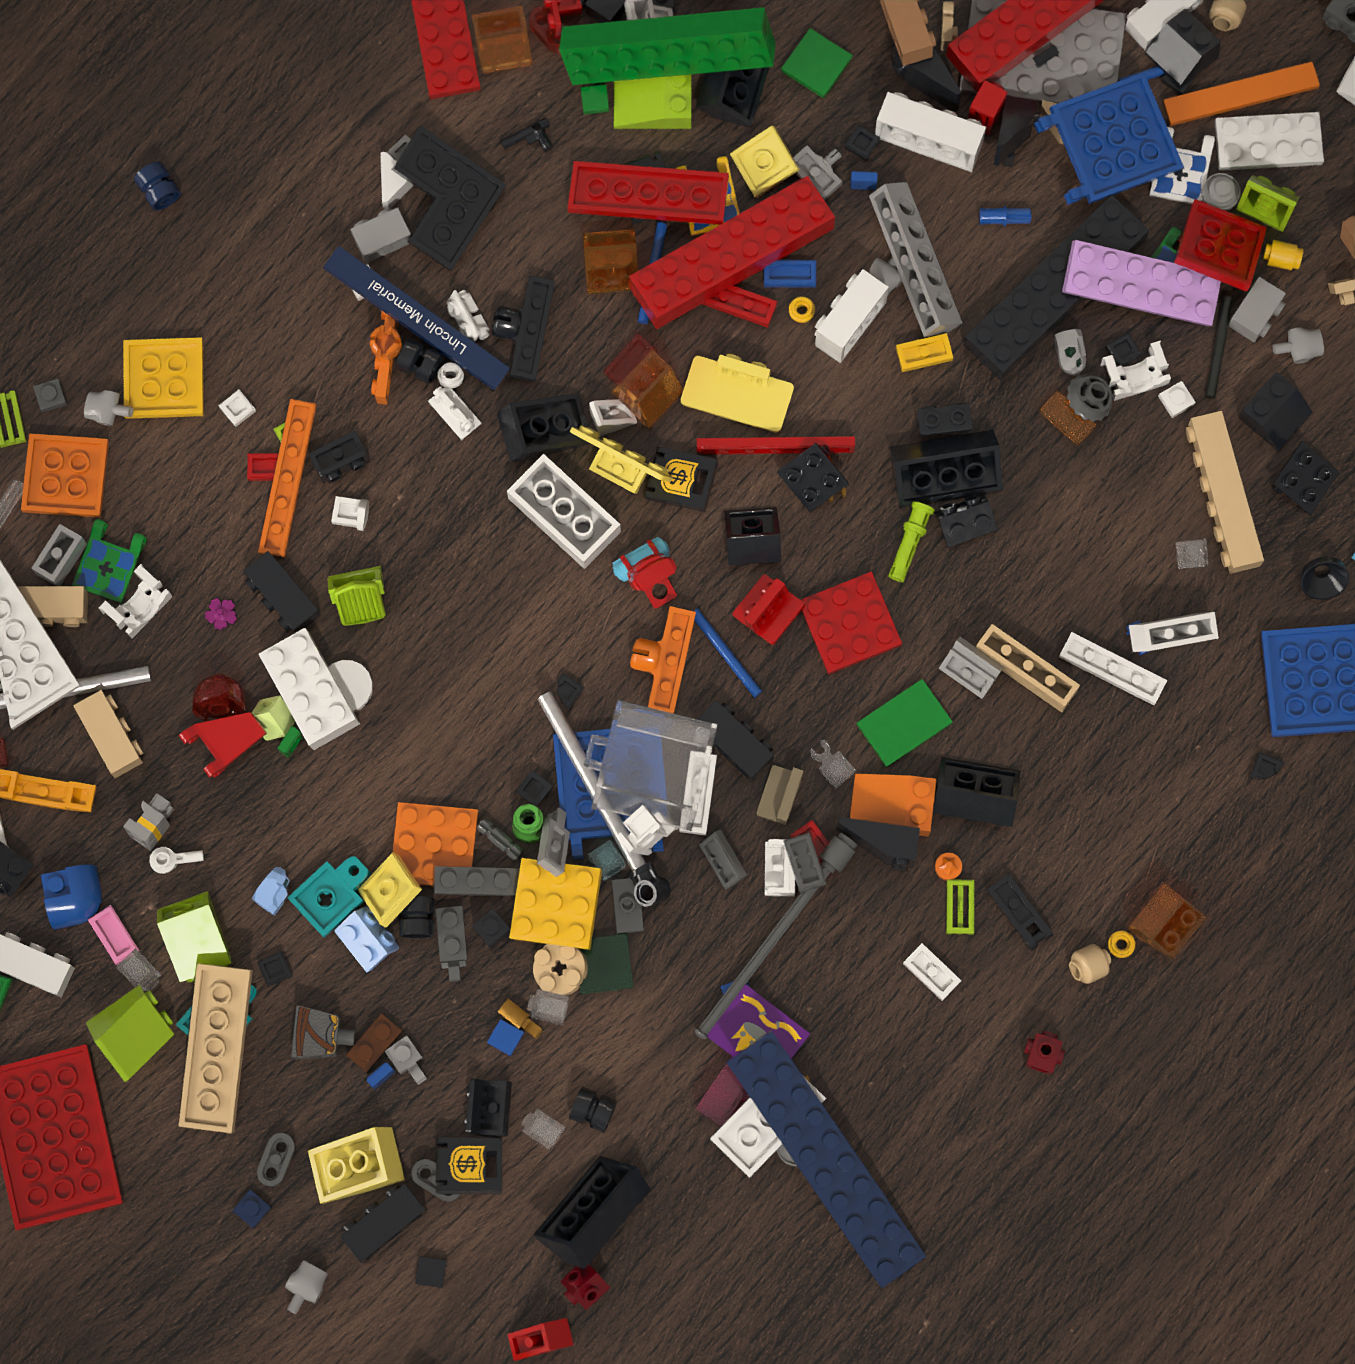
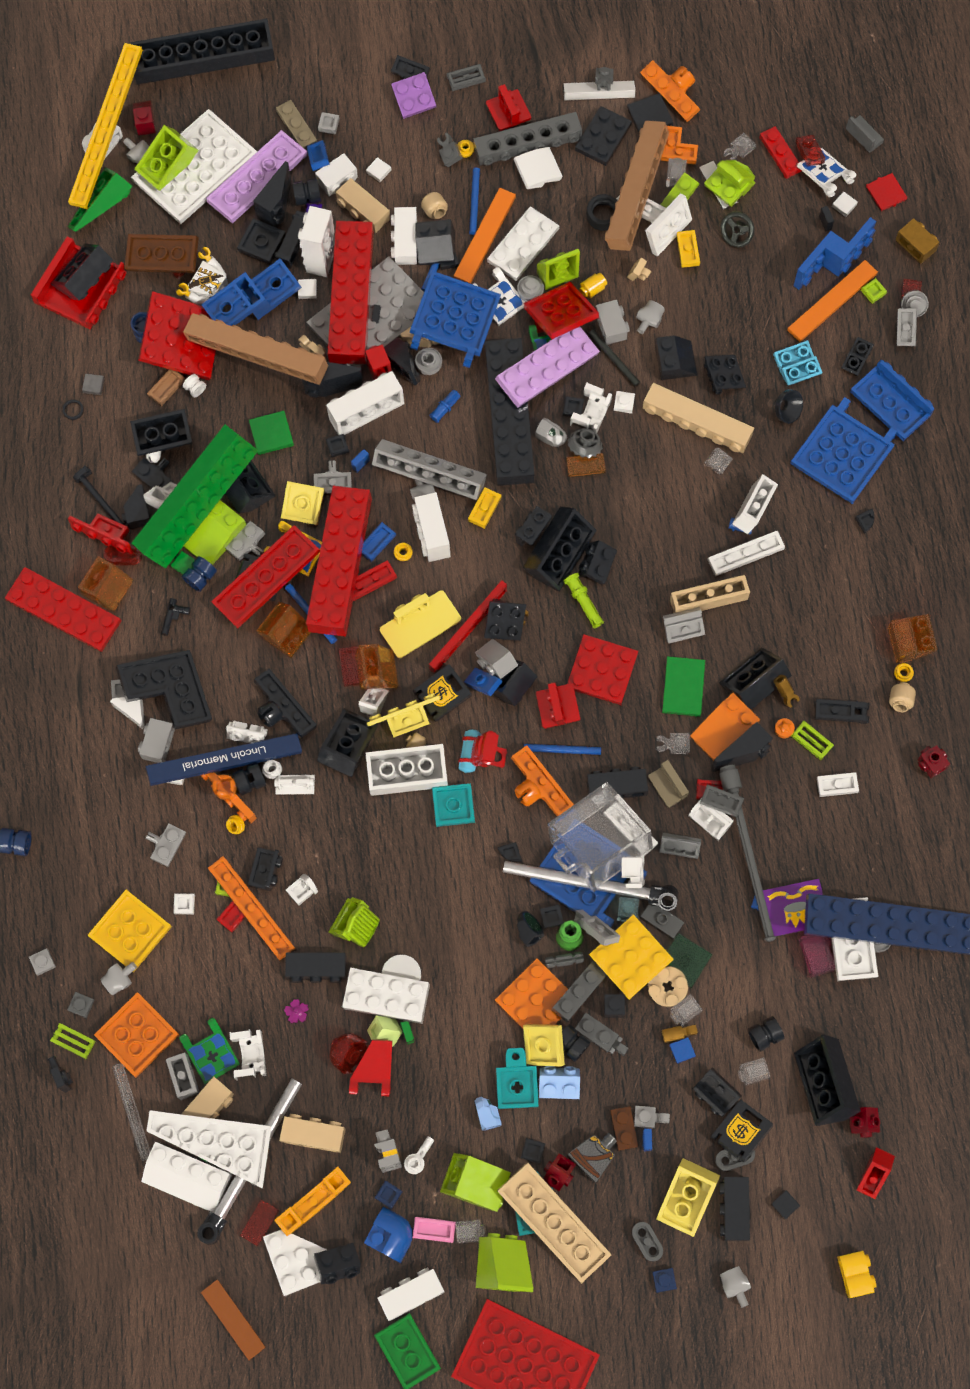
camera: 50 degrees left, 5 degrees down
(61, 320) = (42, 962): none -> light grey plate
(111, 860) = (388, 1194): none -> dark blue tile
(271, 1012) = (559, 1172): none -> dark red brick
(283, 338) = (166, 844): none -> light grey plate
(360, 388) = (235, 824): none -> yellow plate
(501, 776) = (529, 929): none -> black rock
(568, 590) = (453, 805): none -> teal plate
(595, 123) = (199, 573): none -> dark blue wheel
(605, 496) = (415, 740): none -> tan piece
(674, 141) = (246, 542): none -> light grey plate
(726, 510) = (482, 682): none -> blue plate
(760, 502) = (496, 659): none -> light grey brick
(989, 832) = (785, 690): none -> pearl gold bar
(1039, 156) = (428, 361): none -> light grey plate
(1273, 48) = (474, 201): none -> blue bar

